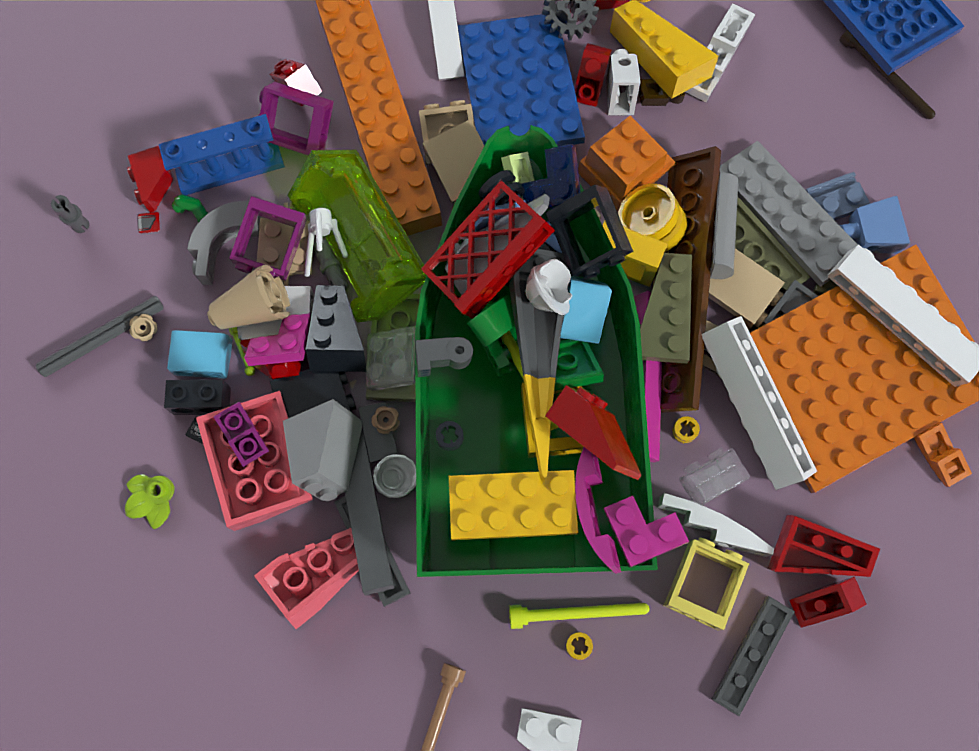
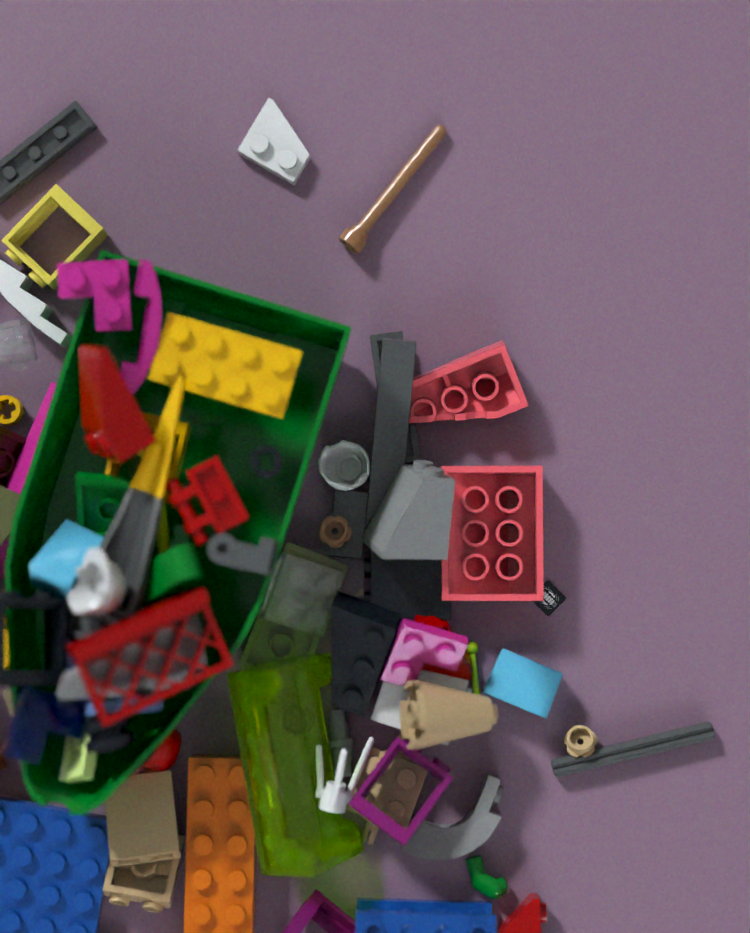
camera: 155 degrees left, 10 degrees up
(70, 214) = (636, 911): dark grey pin -> none
(146, 501) = (627, 533): lime plate -> none
(149, 222) = (541, 879): sticker -> none
(196, 396) = (538, 632): black brick -> none
(241, 434) = (497, 562): magenta slope -> none
(480, 393) = (217, 496): none -> red plate
(521, 615) = (262, 273): neon yellow piece -> none
(588, 643) = (202, 224): yellow bush -> none

